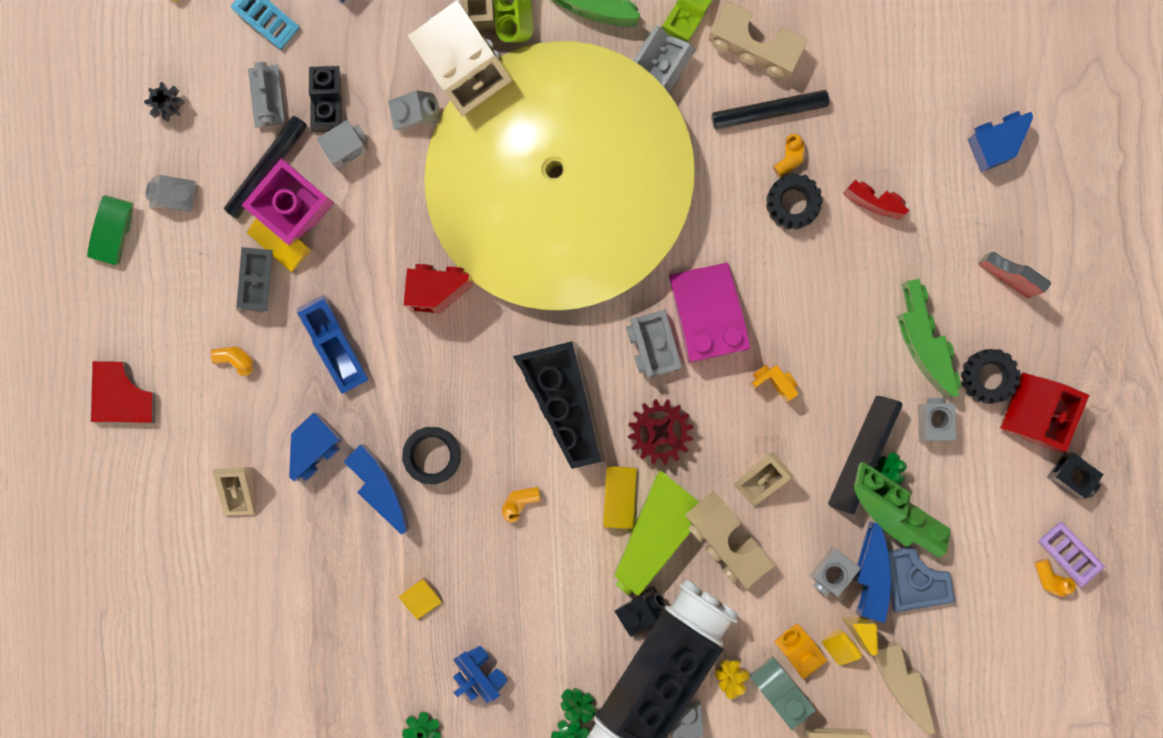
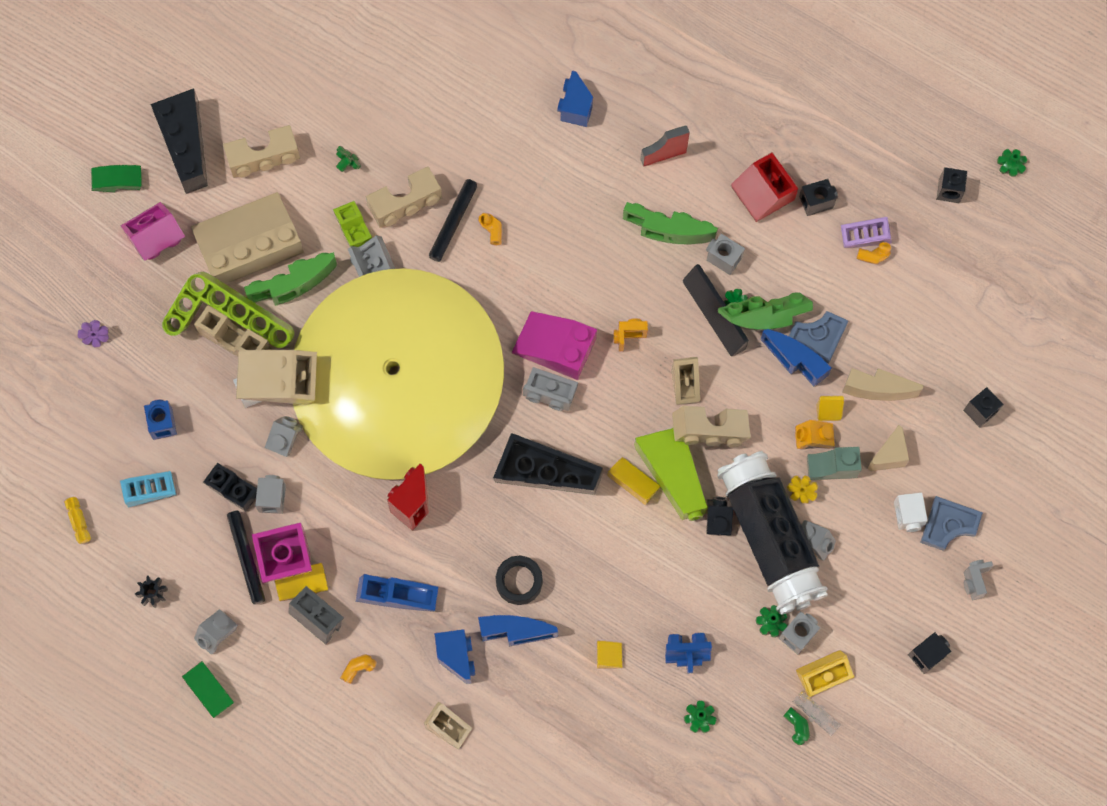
camera: 55 degrees left, 15 degrees down
(117, 397) = (324, 765): red tile -> none
(266, 95) = (199, 523): light grey hinge -> none
(516, 501) = (589, 547): light orange arm -> none
(578, 705) = (753, 600): green plant -> none
(672, 440) = (601, 428): dark red gear -> none
(804, 185) = (522, 231): black tyre -> none
(847, 568) = (781, 370): light grey brick -> none
(864, 633) = (829, 384): yellow slope -> none
(887, 205) = (566, 192): red slope -> none
(1006, 366) = (719, 191): black tyre -> none

